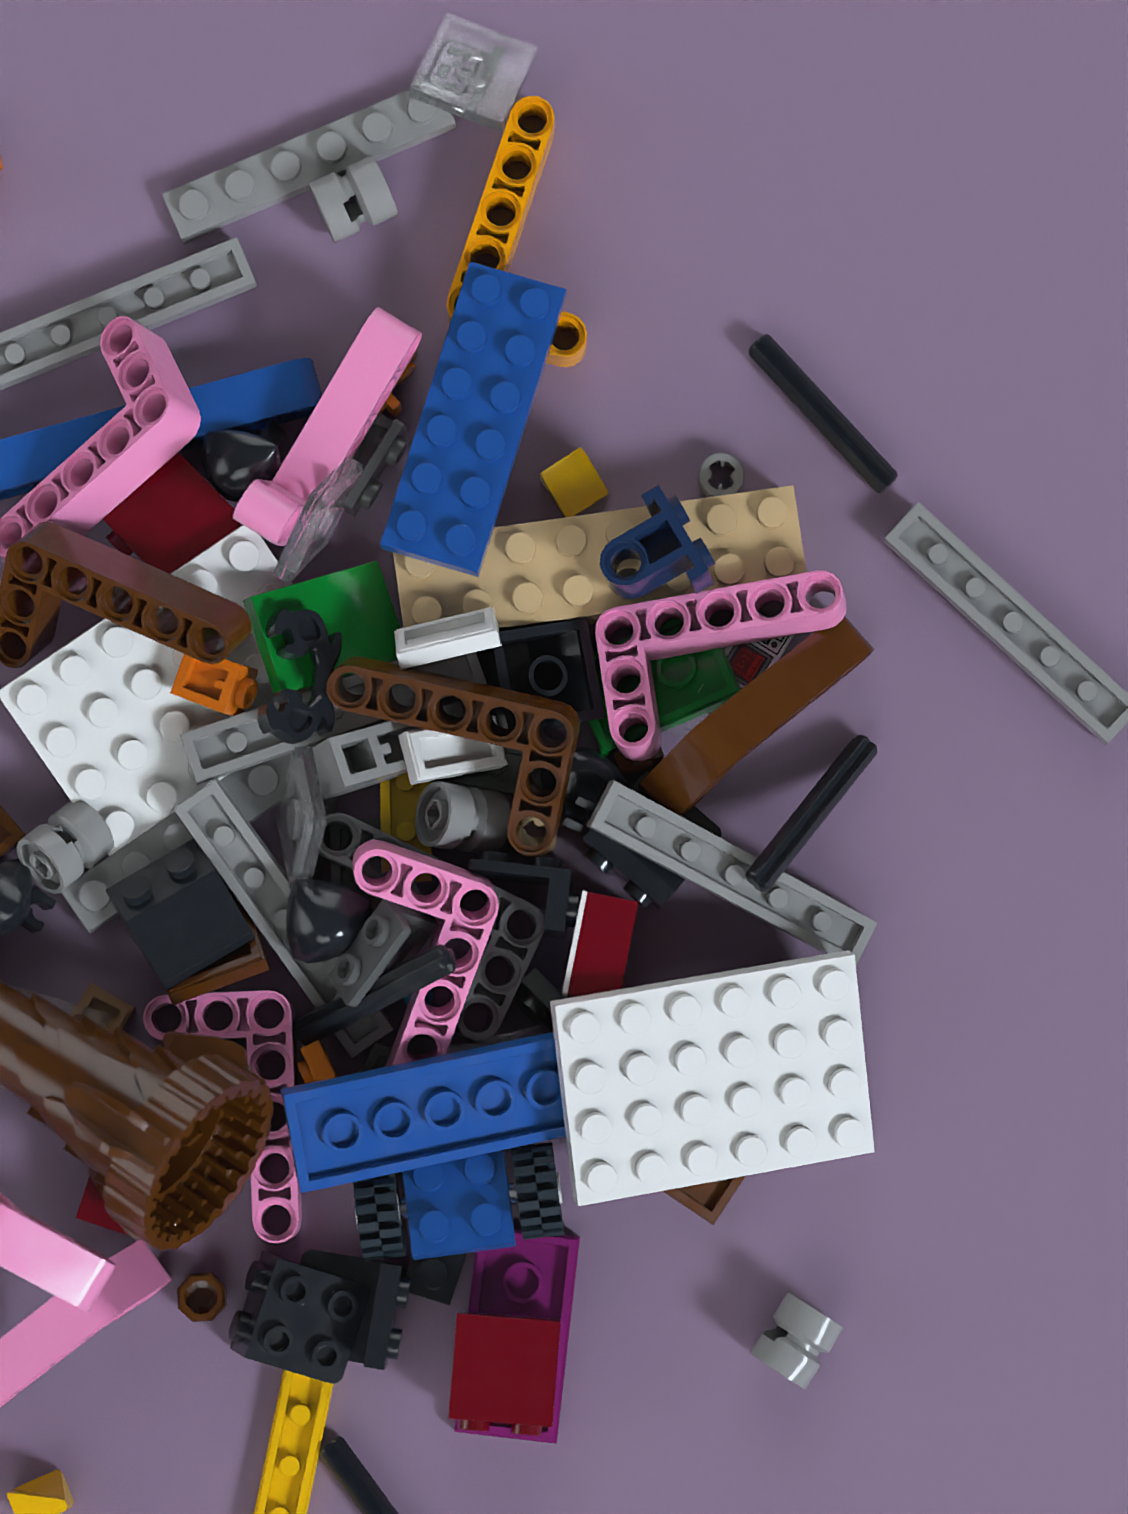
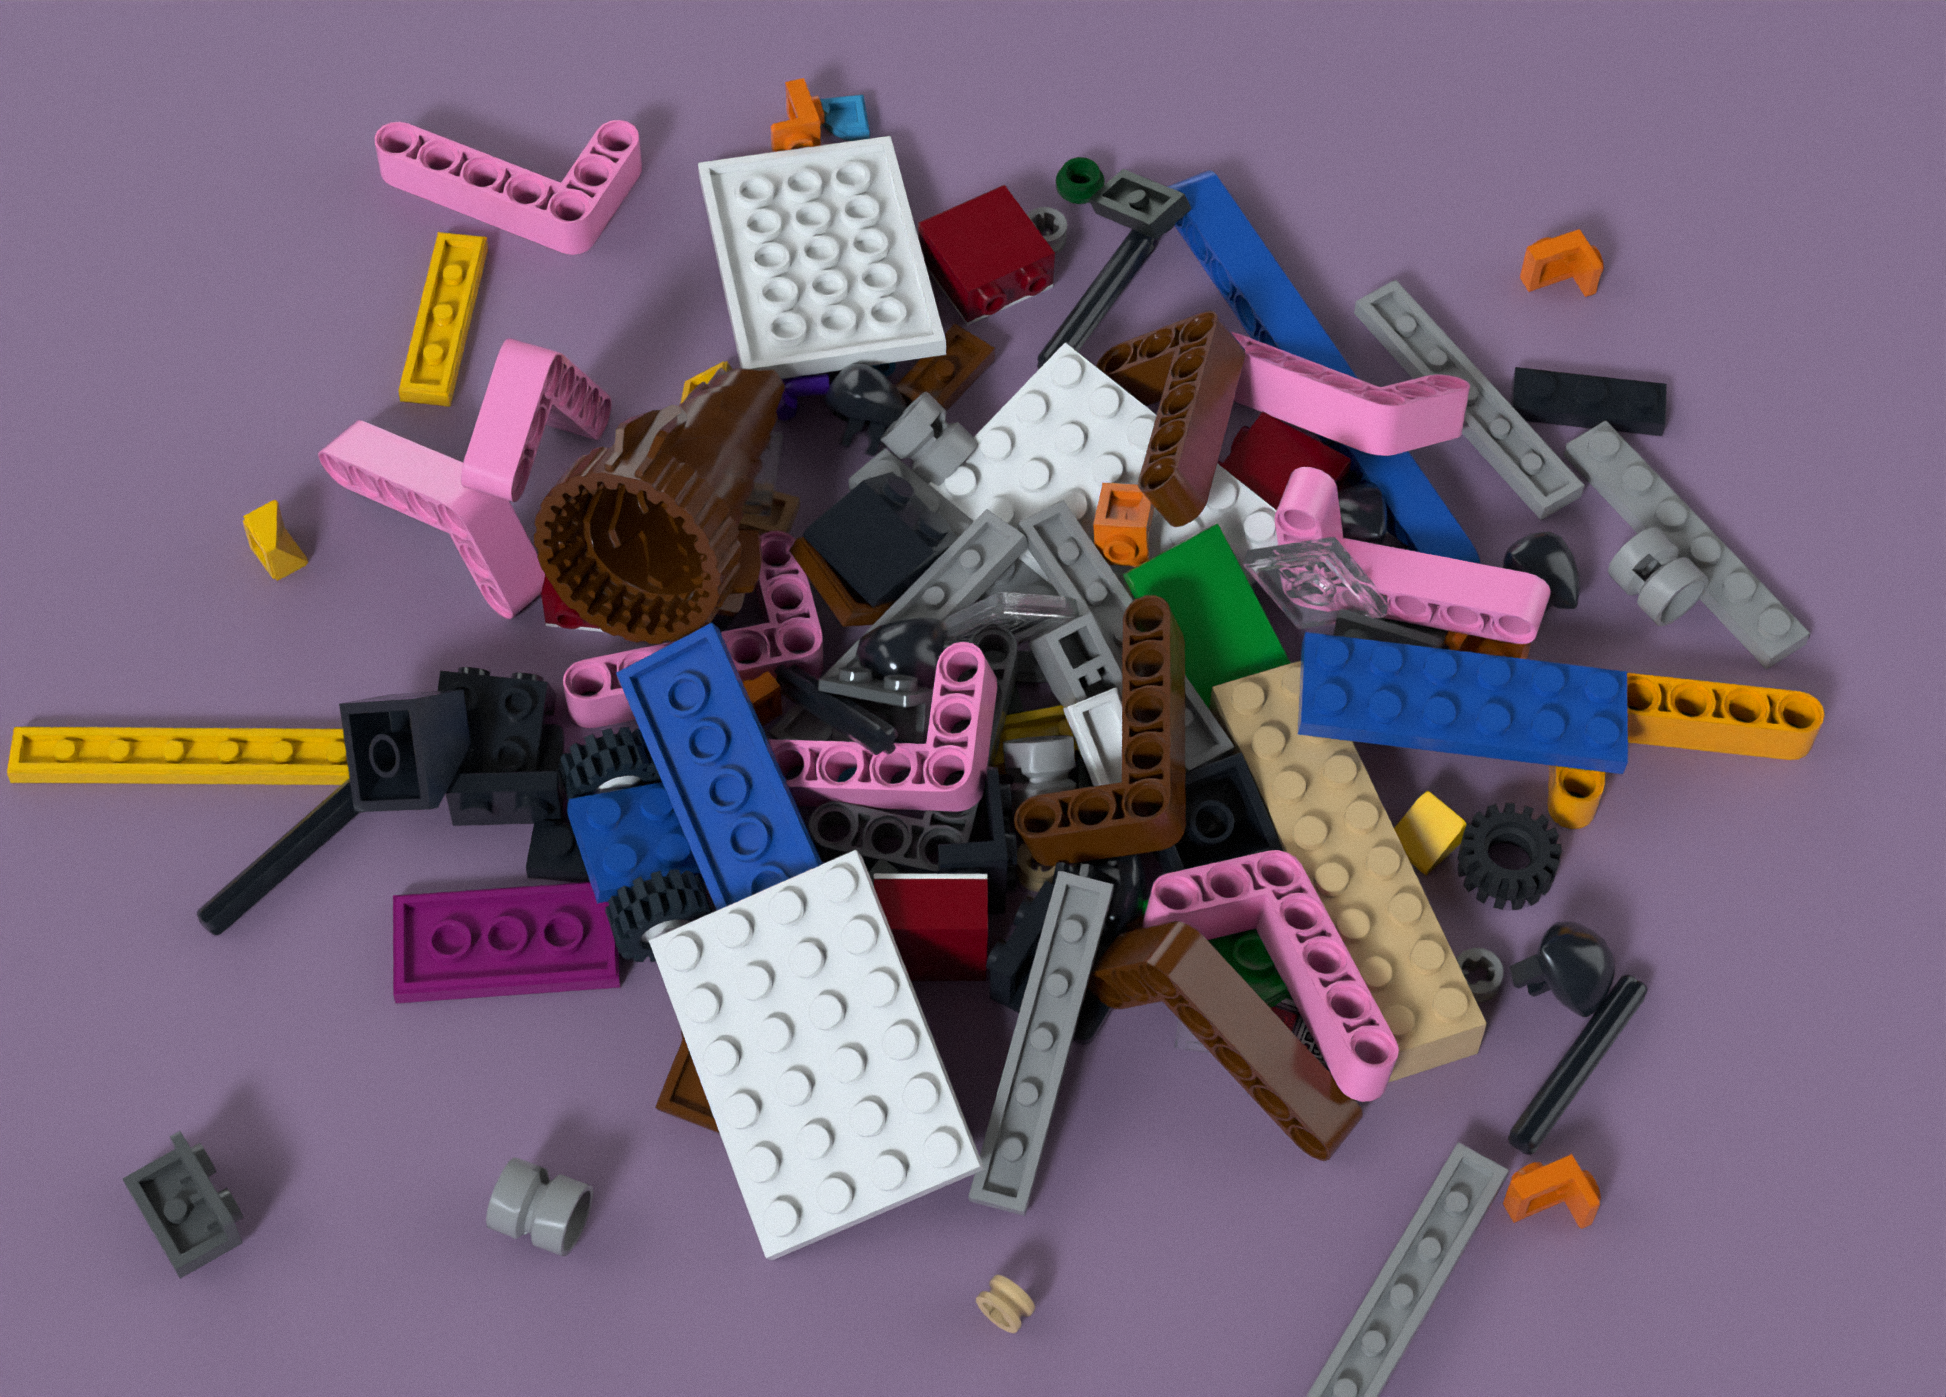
camera: 75 degrees right, 25 degrees down
(131, 203) = (1589, 400): none -> black plate
(202, 1297) = (499, 645): reddish brown tile -> none
(293, 720) = (1194, 582): black helmet -> none
(326, 1401) = (404, 748): none -> black slope
(330, 304) = (1551, 560): none -> black piece
(447, 638) = (1224, 709): white tile -> none
(473, 72) = (1830, 660): clear tile -> none
(504, 1372) = (461, 916): dark red piece -> none
(620, 387) = (1515, 830): none -> black tyre
(661, 548) = (1372, 879): dark blue pin -> none
(739, 393) = (1572, 965): none -> black piece
(811, 813) = (1130, 1112): black axle -> none
(936, 480) = (1541, 1187): none -> orange bracket
(956, 956) = (1005, 1304): none -> tan bush

